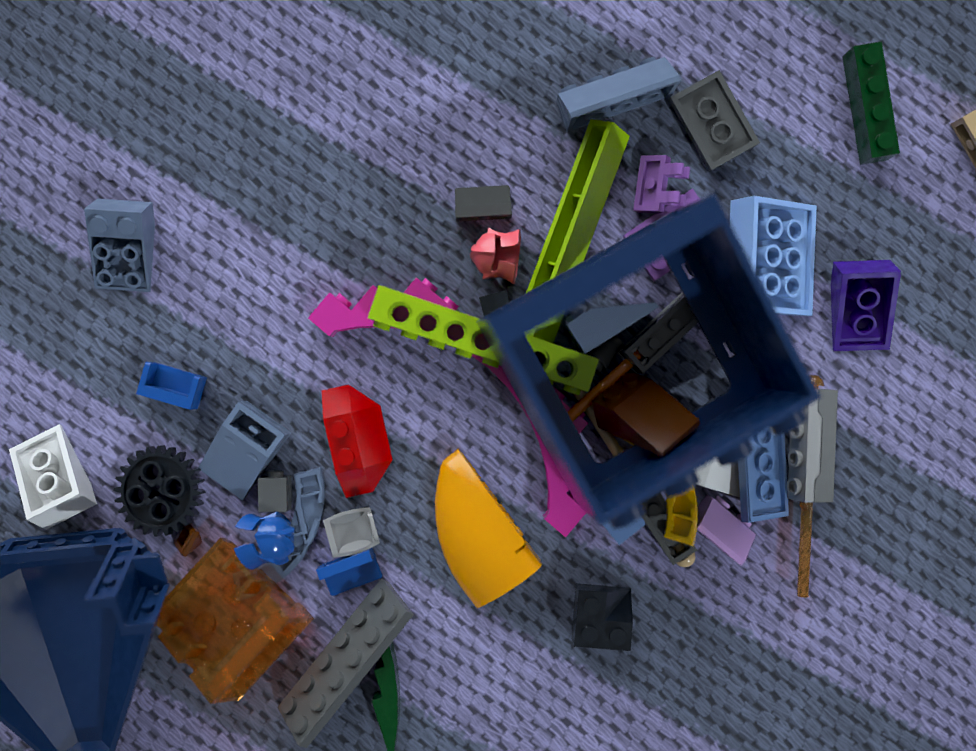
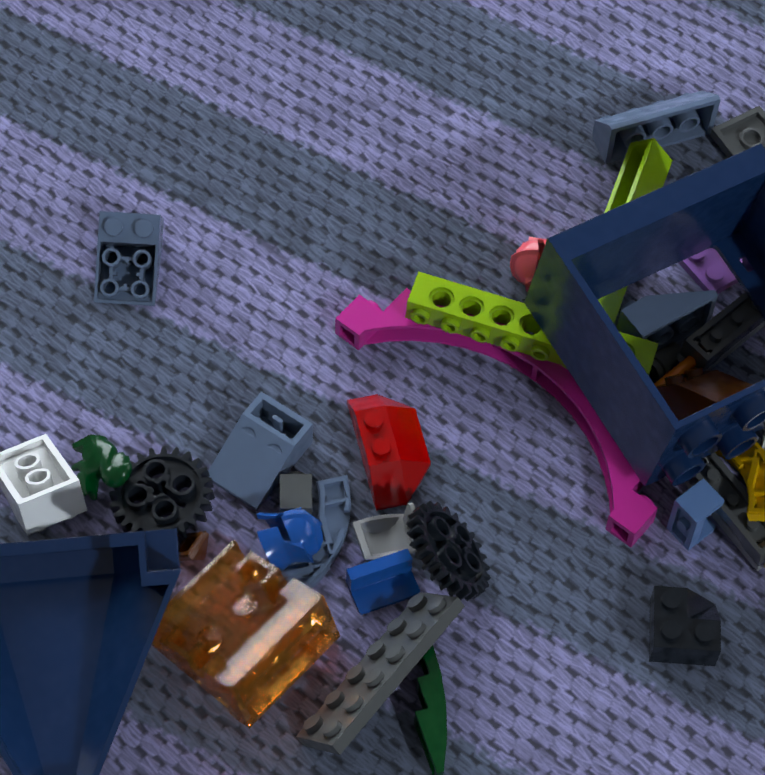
camera: 10 degrees left, 30 degrees down
(102, 467) = (100, 462): none -> dark green animal
(171, 385) = (178, 394): blue panel -> none
(401, 560) = (448, 551): none -> black gear
(479, 534) = (536, 538): light orange panel -> none
(482, 203) = (520, 224): dark grey panel -> none

